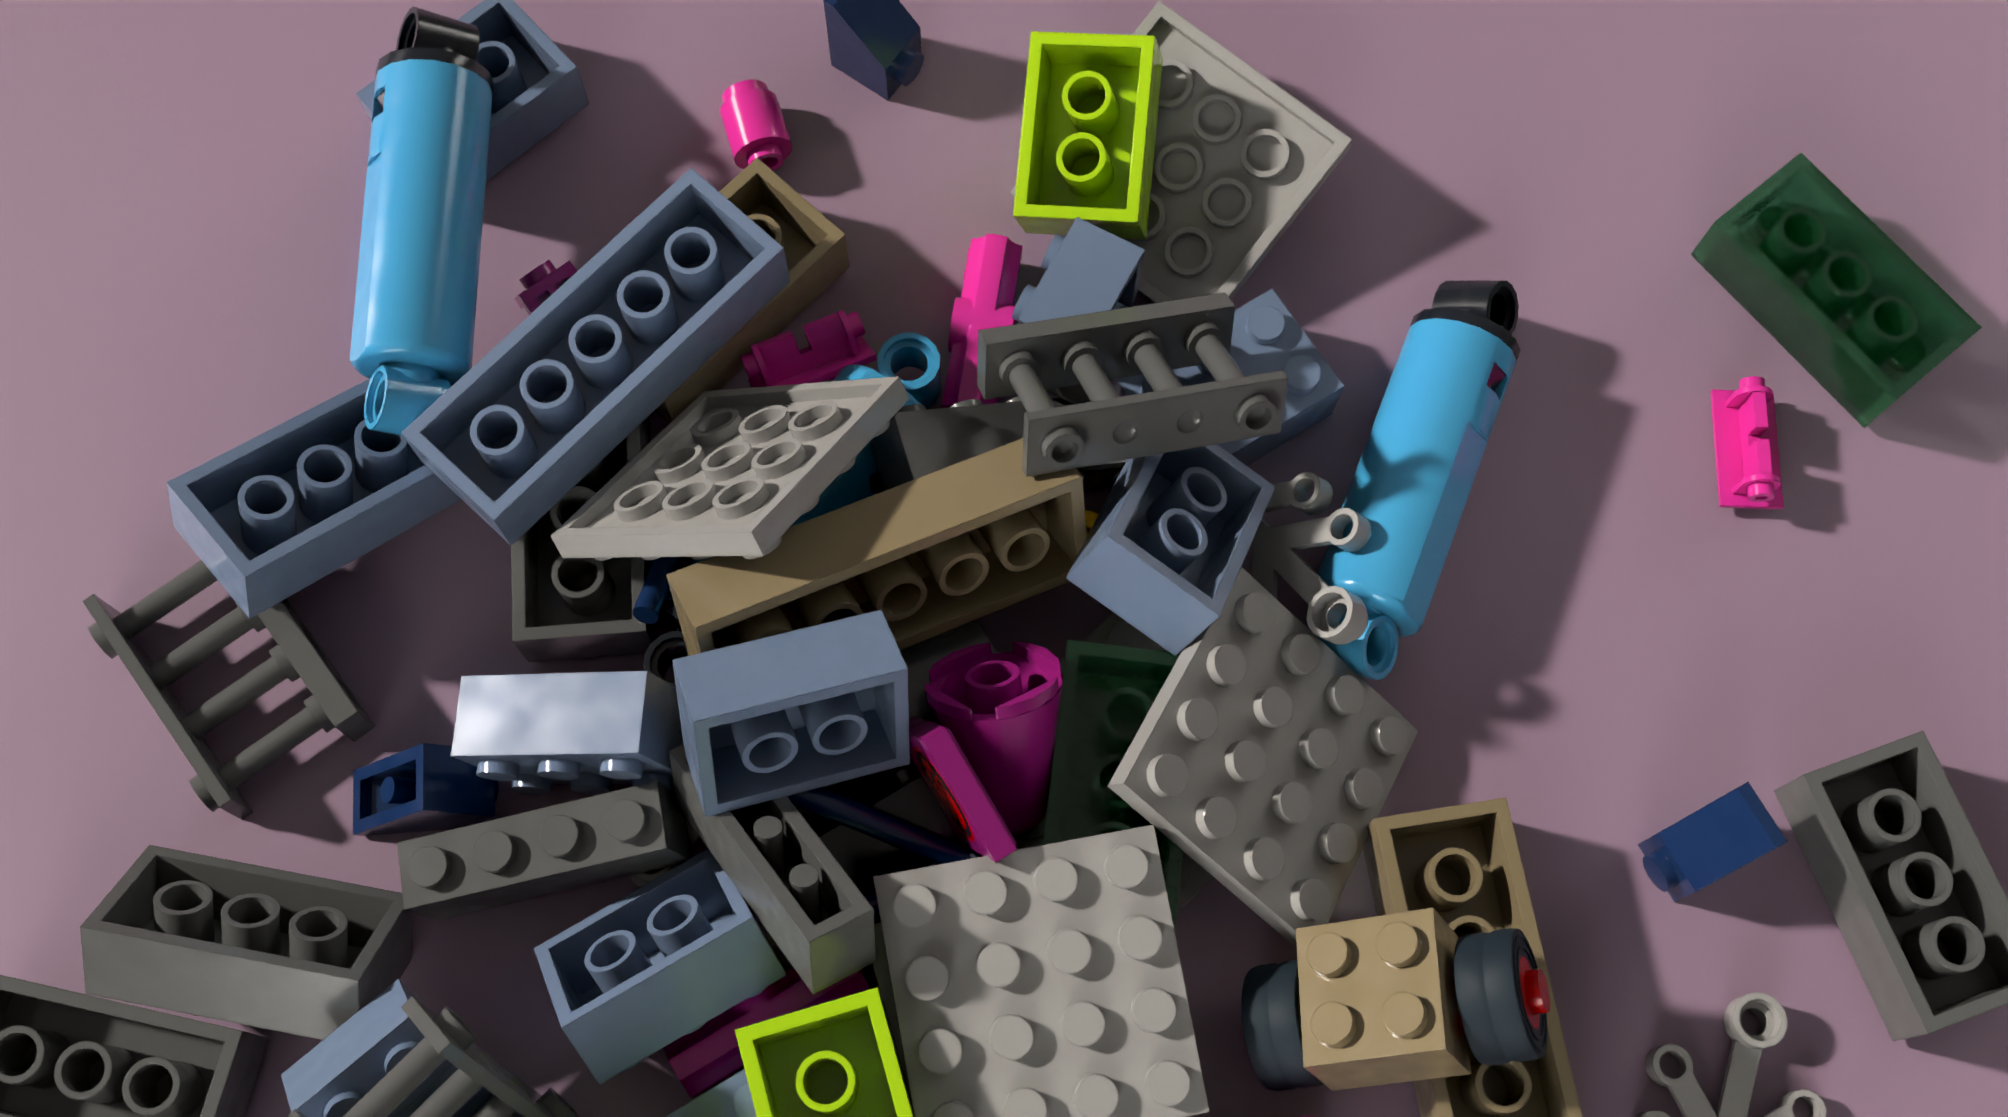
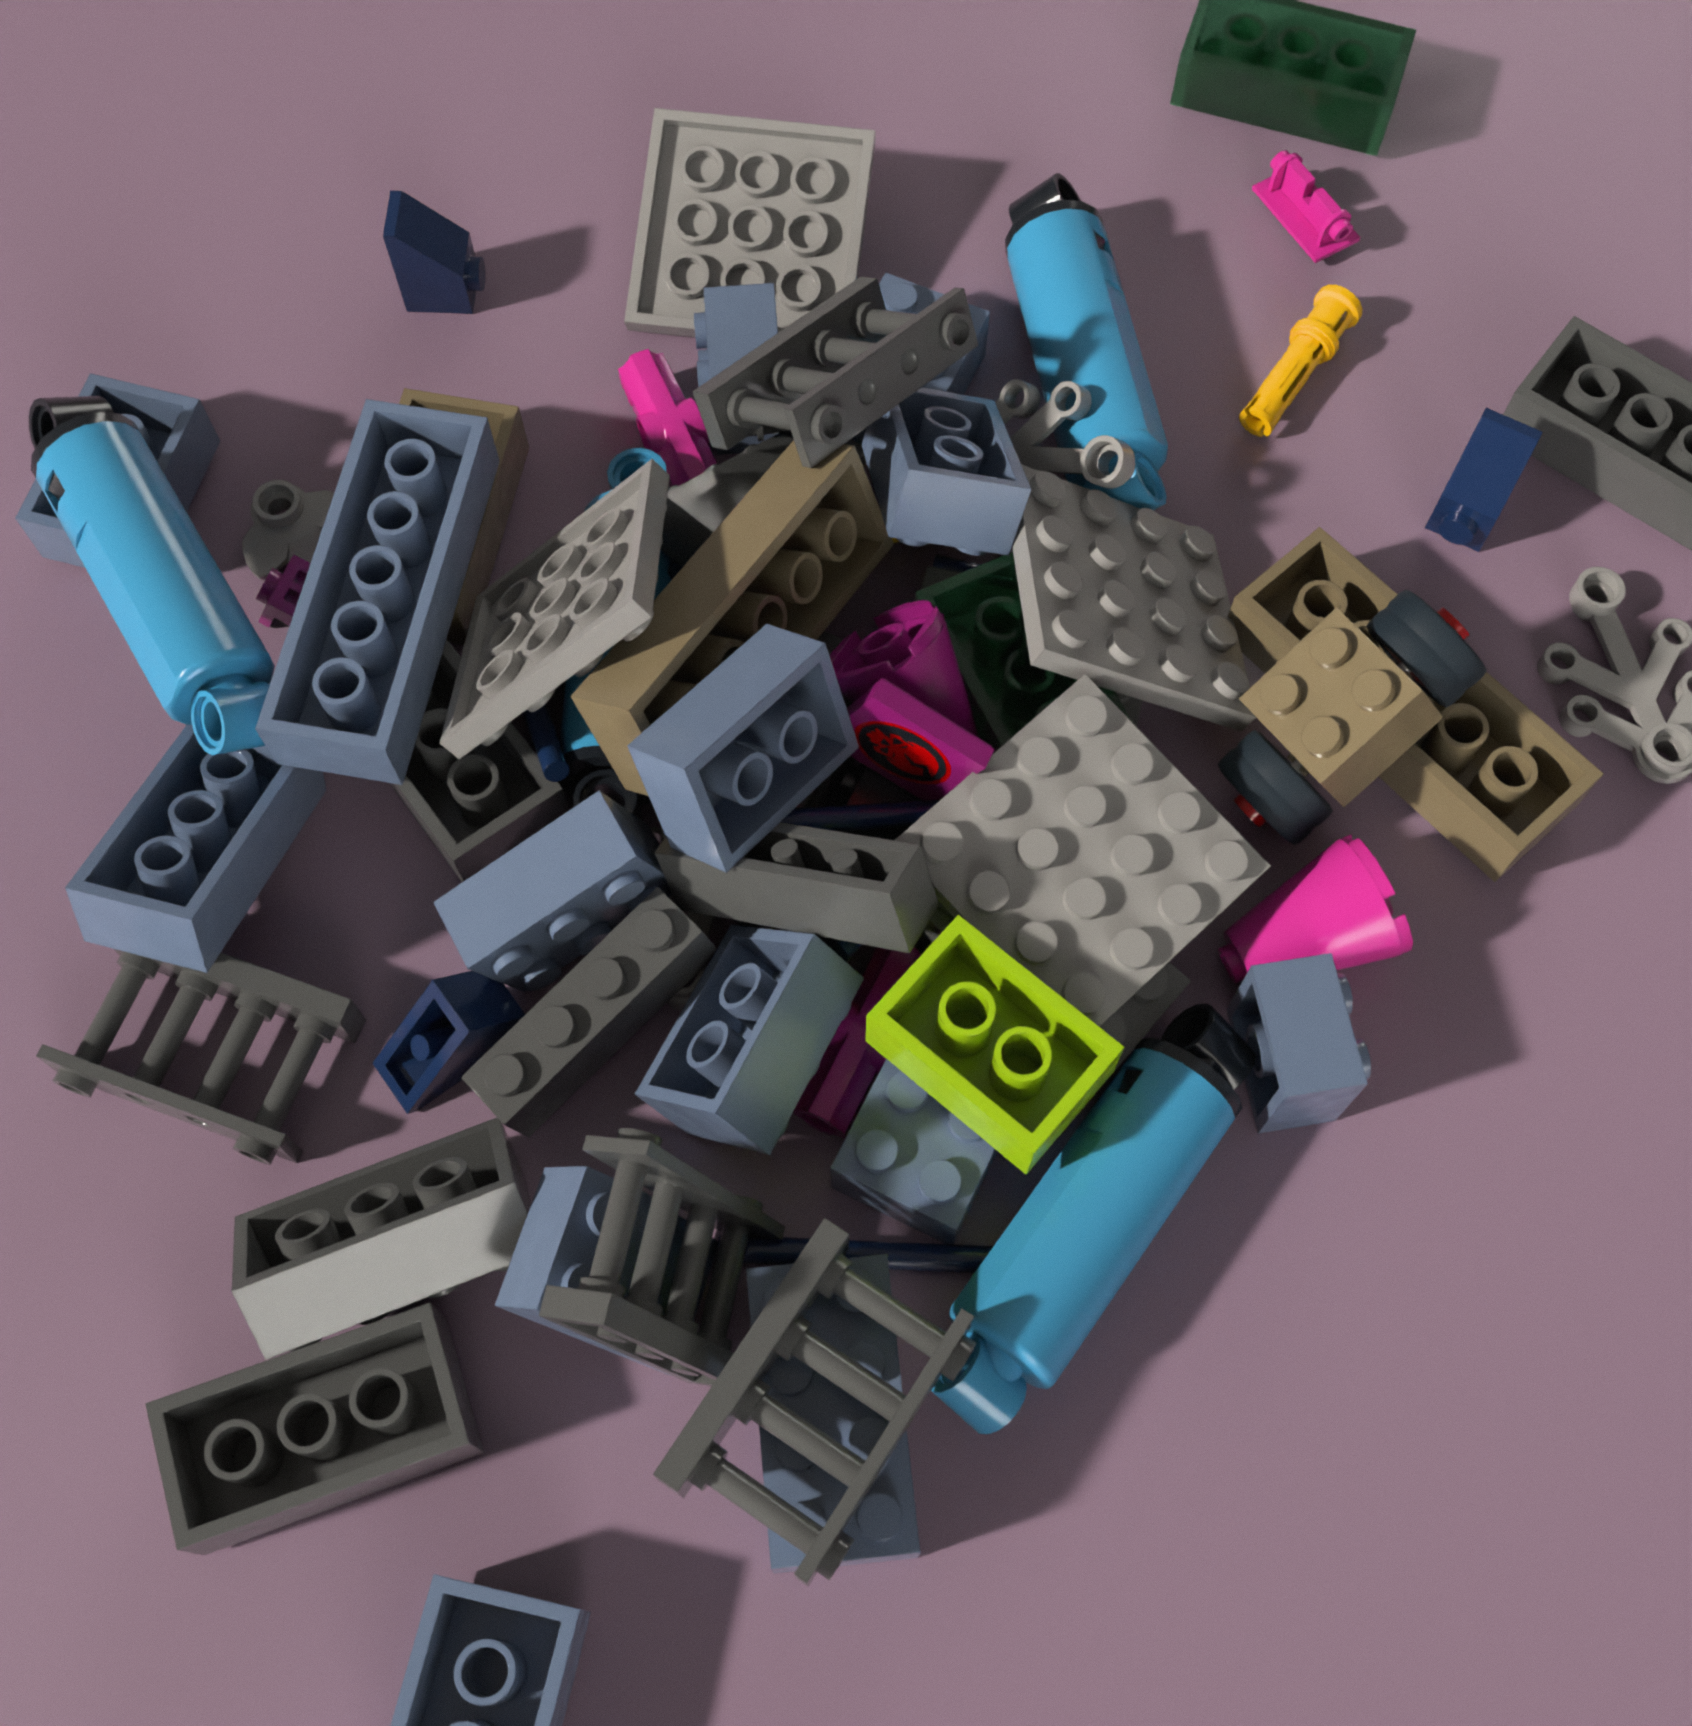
camera: 30 degrees left, 5 degrees down
(582, 232) = (277, 537): none -> light grey plate
(754, 124) = (373, 374): dark pink brick -> none
(832, 345) = (557, 504): dark pink hinge -> none
(1088, 133) = (665, 225): lime brick -> none
(1652, 592) = (1311, 343): none -> yellow pin

